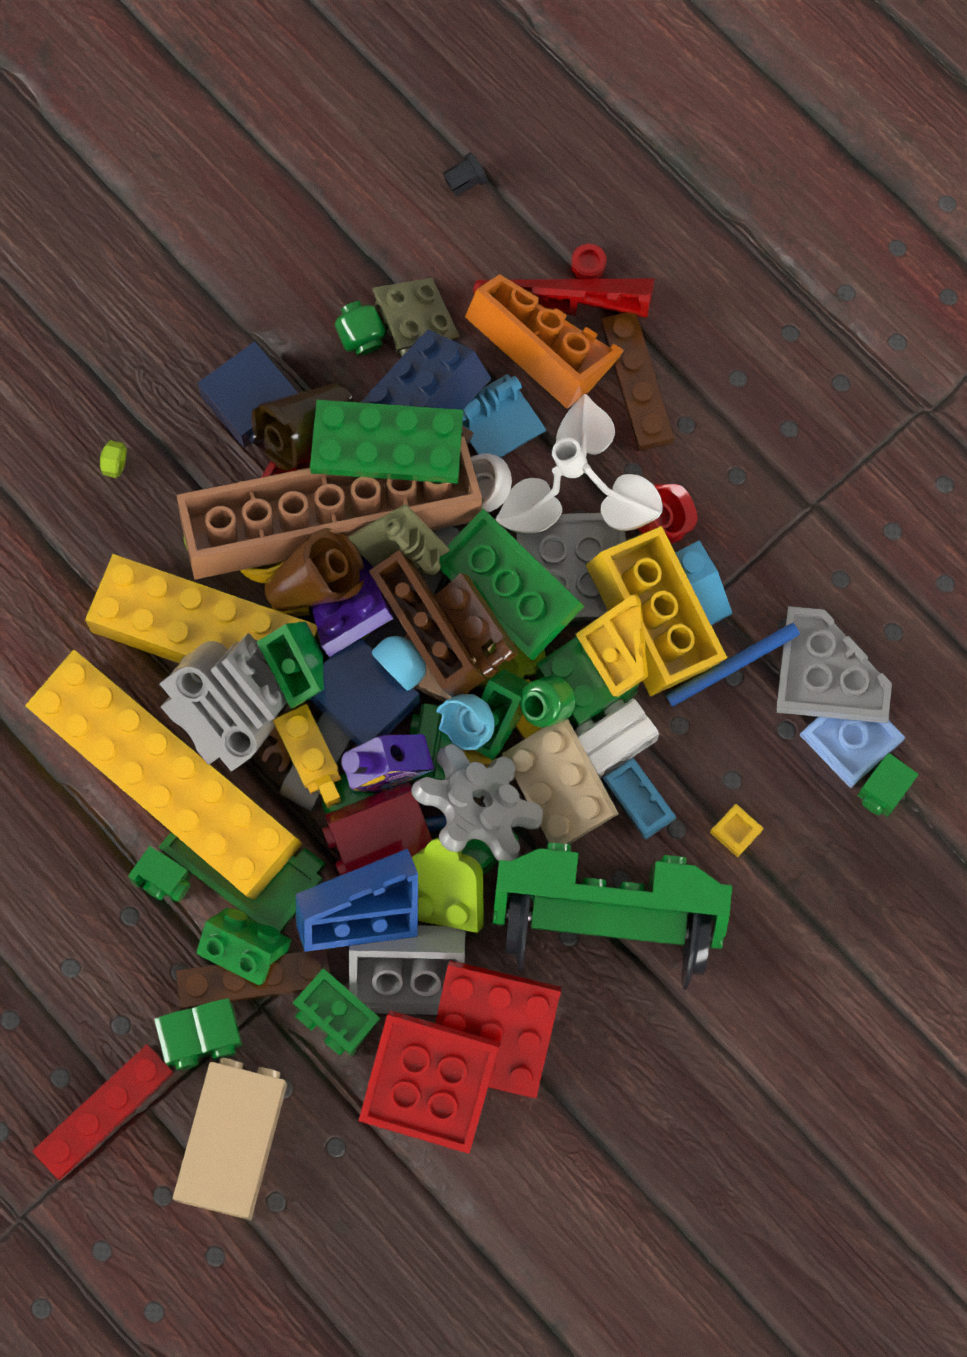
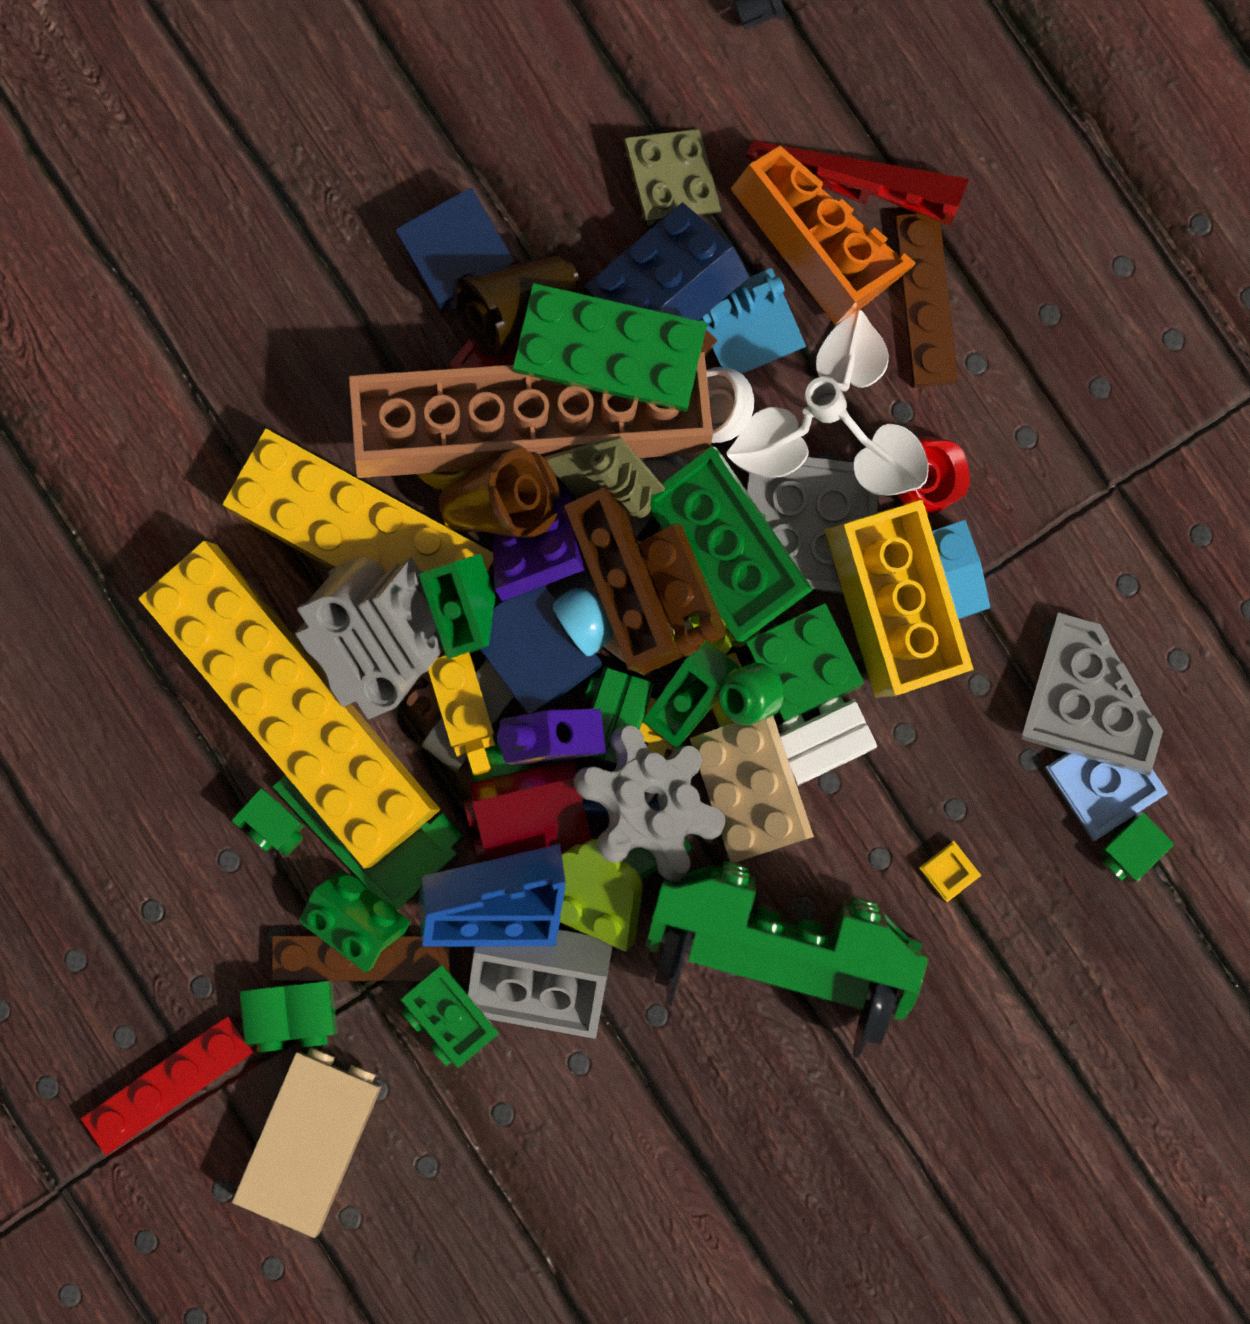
camera: 10 degrees right, 10 degrees up
(113, 459) = (282, 304): lime tile -> none
(360, 328) = (602, 185): green head -> none
(429, 1081) = (544, 1115): red plate -> none
(466, 721) = (652, 703): medium azure hair -> none
(507, 1011) = (626, 1065): red plate -> none
(588, 261) = (893, 139): red tile -> none
(618, 645) = (845, 641): yellow wing -> none
(639, 798) = (841, 817): dark azure plate -> none
(732, 664) = (982, 673): blue bar -> none

